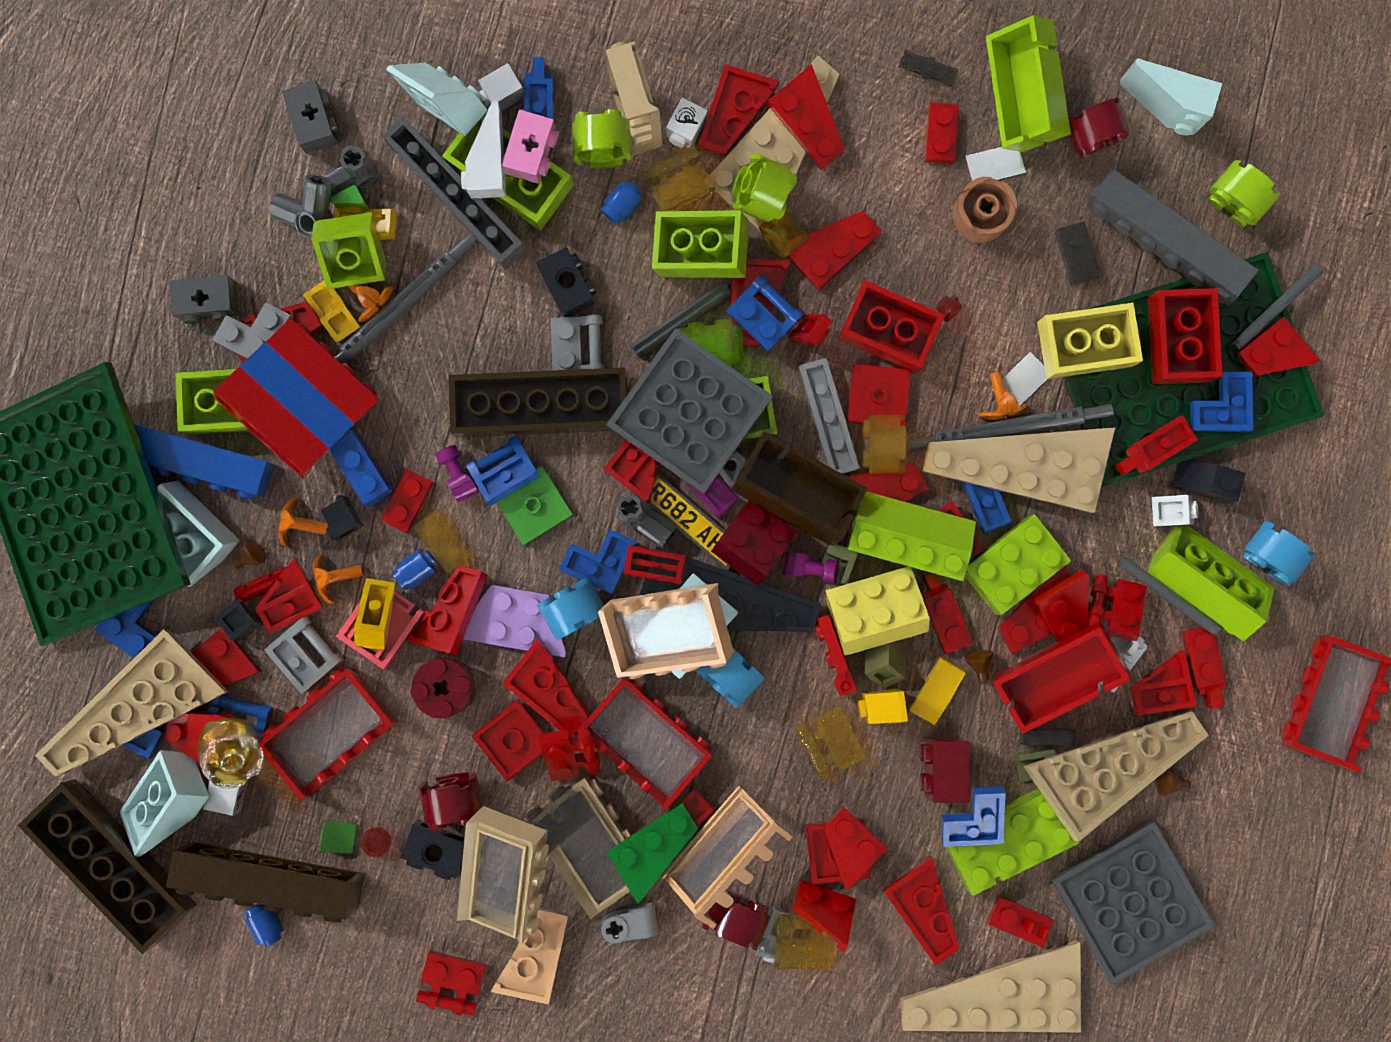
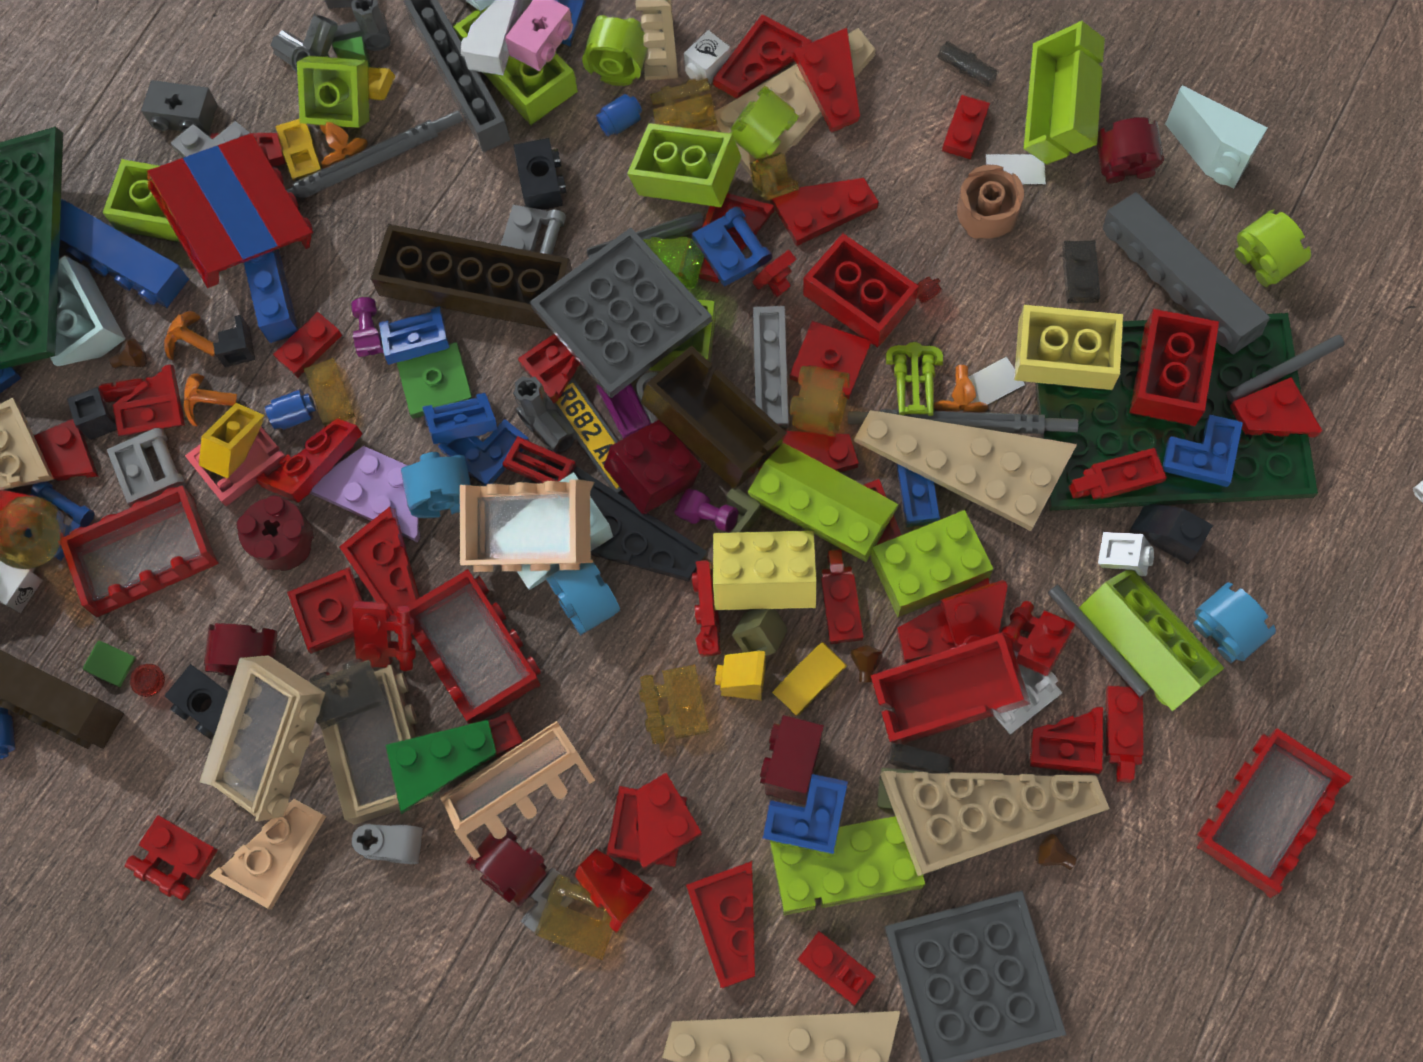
camera: 20 degrees right, 15 degrees down
(573, 546) = (459, 419): none -> blue plate
(949, 368) = (914, 351): none -> lime piece

